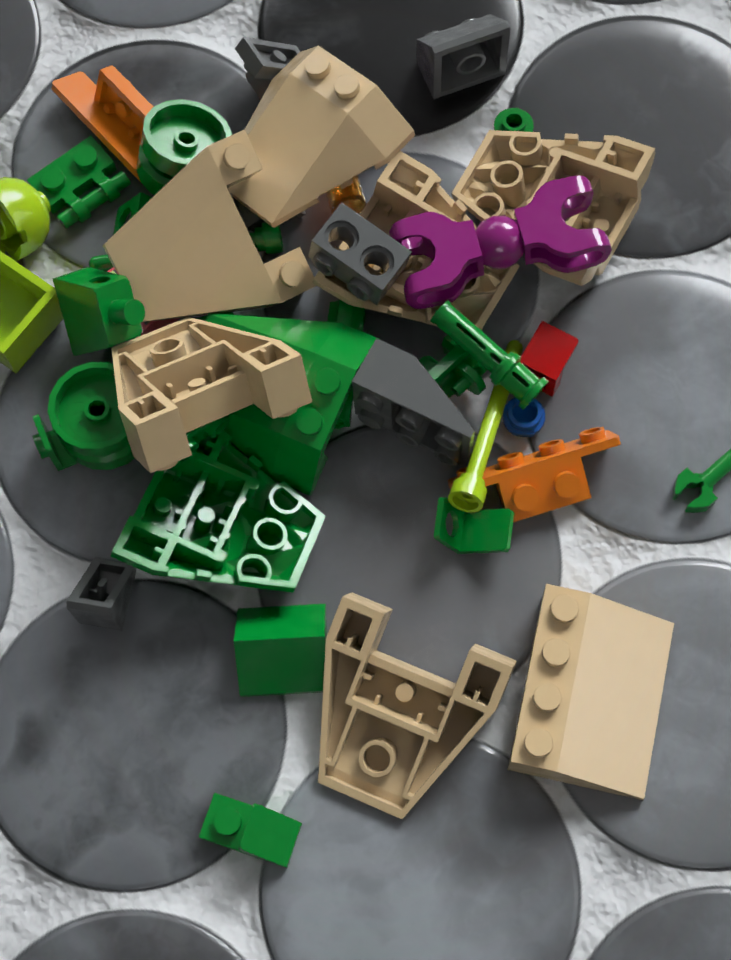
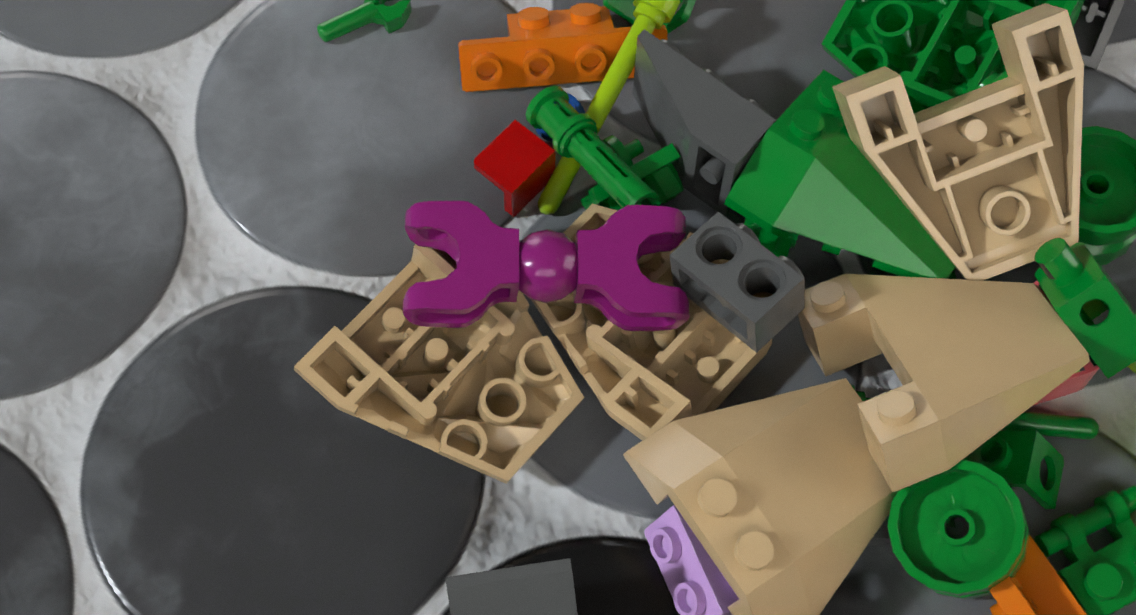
camera: 175 degrees left, 5 degrees down
(516, 116) = (467, 520): green plate -> none

